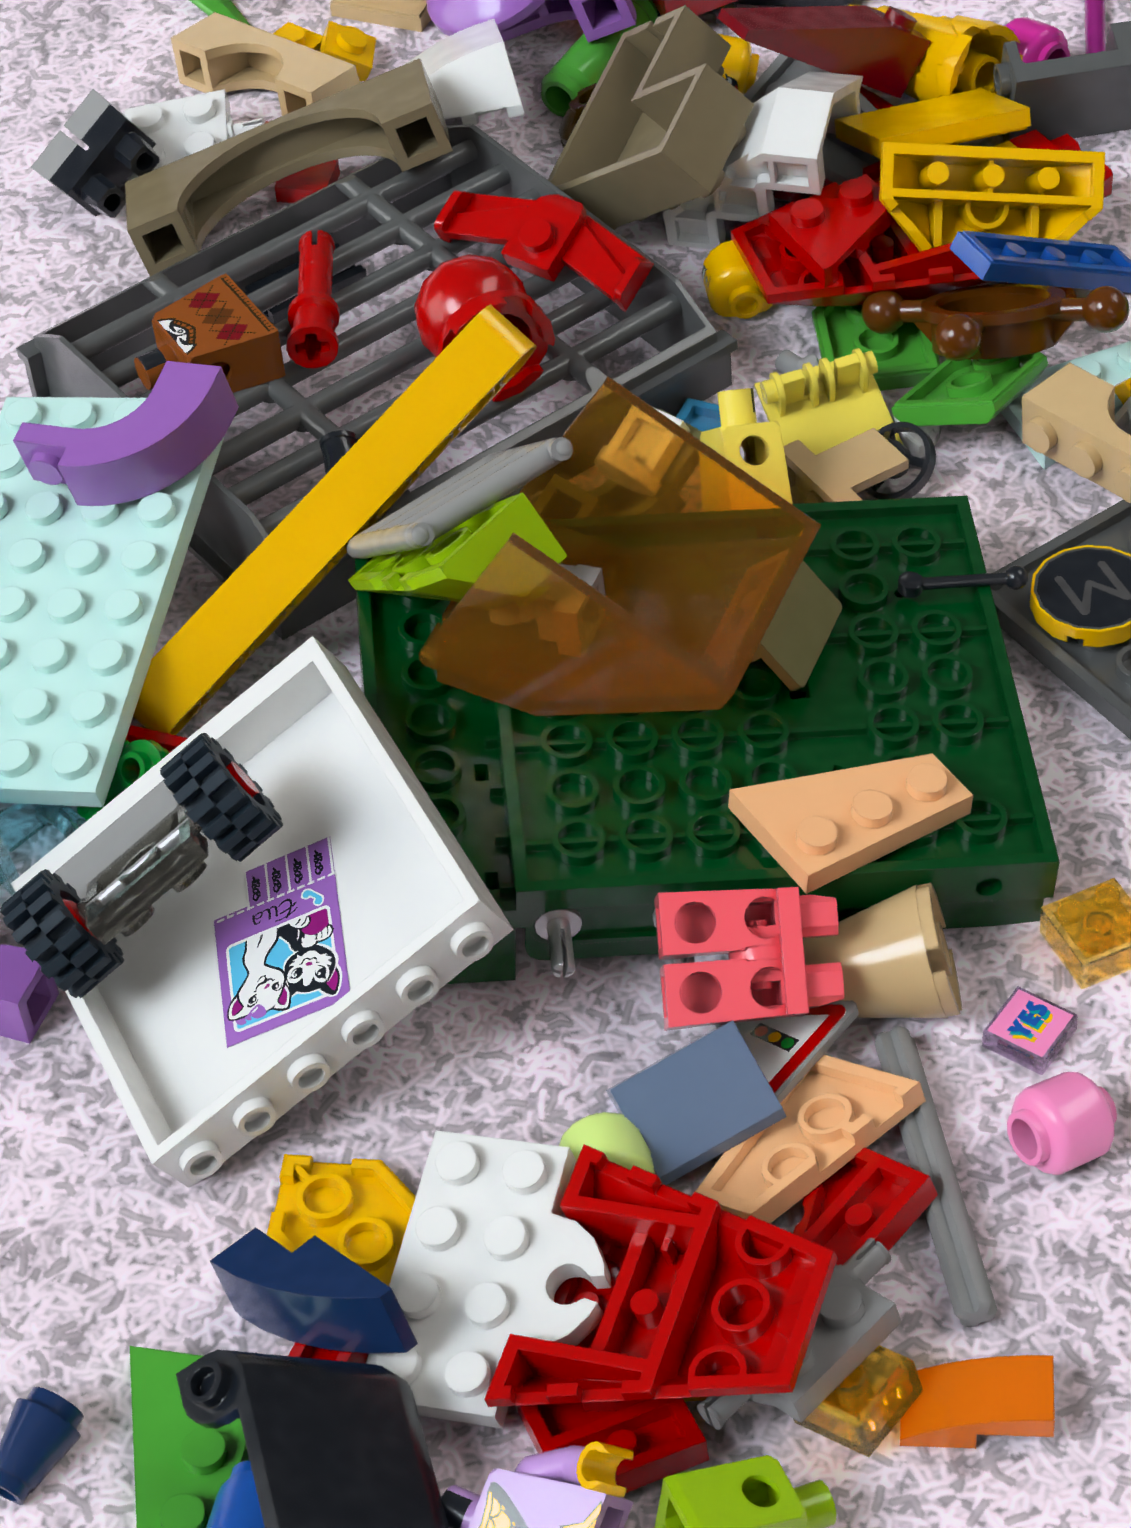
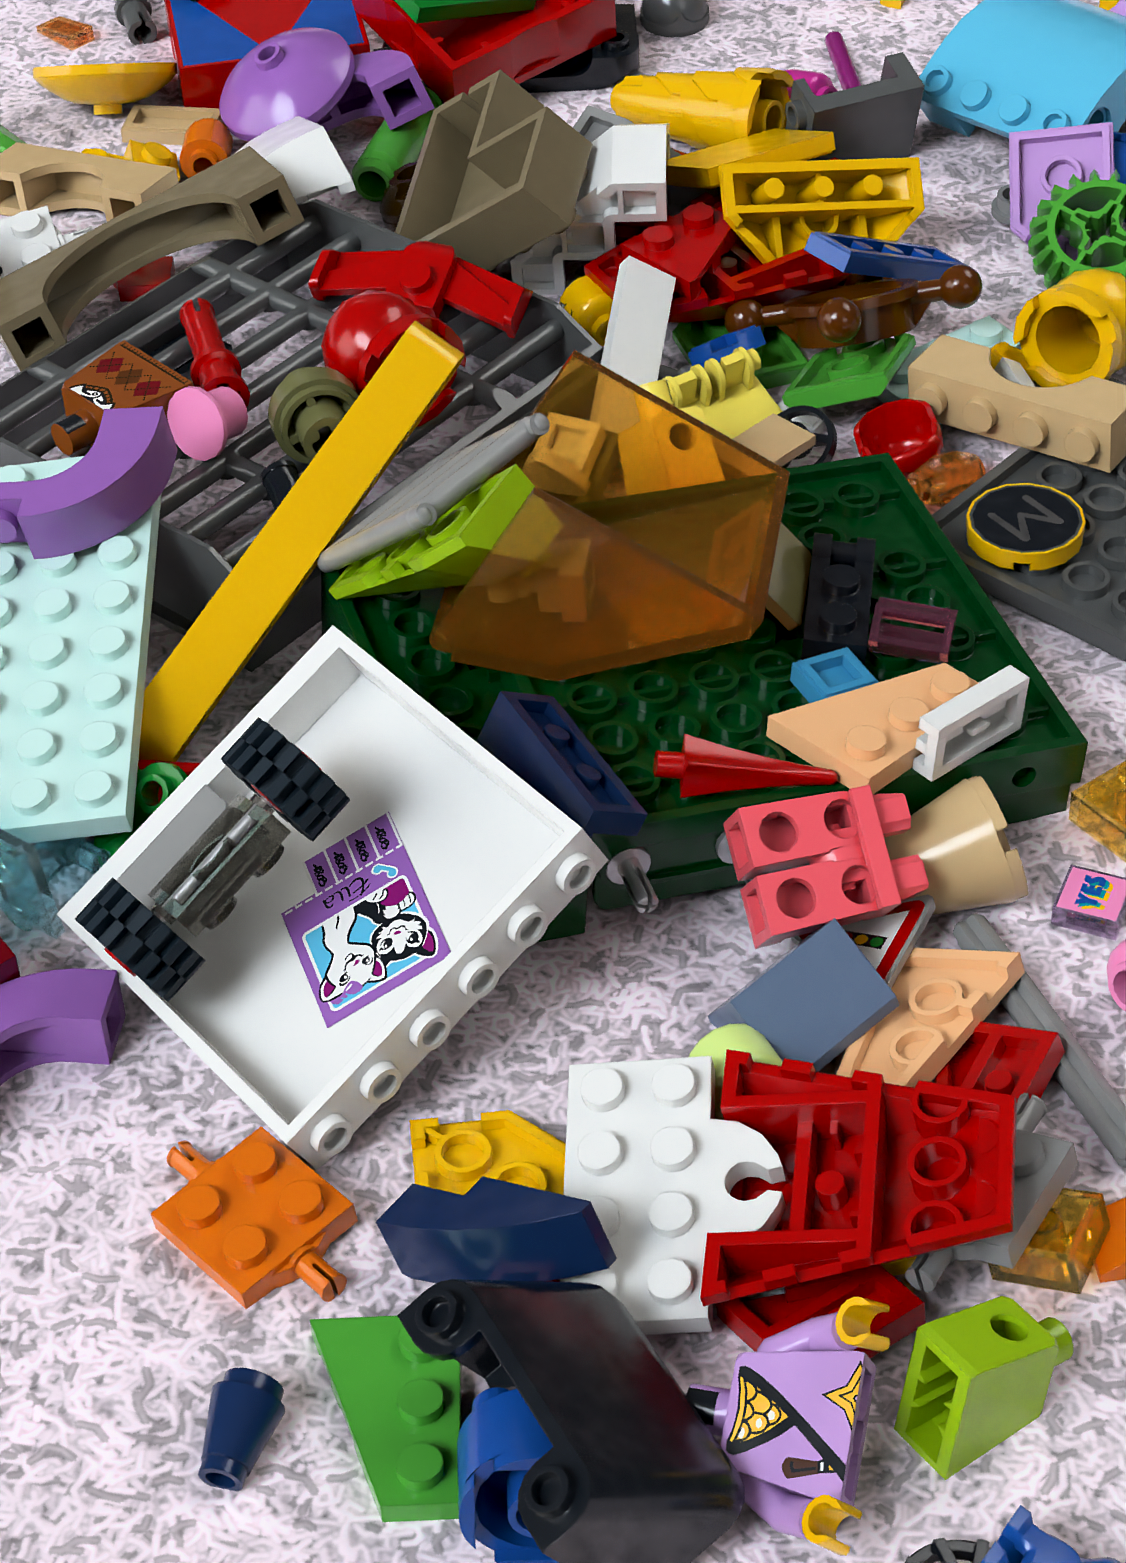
camera: 15 degrees left, 5 degrees down
(112, 1231) = (255, 1218): none -> orange plate
(286, 371) = (205, 420): none -> bright pink piece
(381, 372) = (308, 409): none -> olive piece
(404, 36) = (204, 145): none -> orange brick
(500, 817) = (558, 761): none -> dark blue panel
(658, 840) = (714, 768): none -> red piece
(748, 329) = (638, 321): none -> white tile
(813, 750) = (830, 675): none -> dark azure tile
(838, 40) = (642, 94): dark red wedge -> none
(843, 342) = (724, 345): none -> blue tile
(851, 665) = (839, 596): none -> black plate
(911, 583) = (958, 513): black hinge -> none
(913, 711) = (908, 641): none -> clear pink piece
(933, 827) = (971, 722): none -> white tile
(999, 473) = (902, 429): none -> red hair
(1029, 523) = (946, 476): none -> clear orange piece

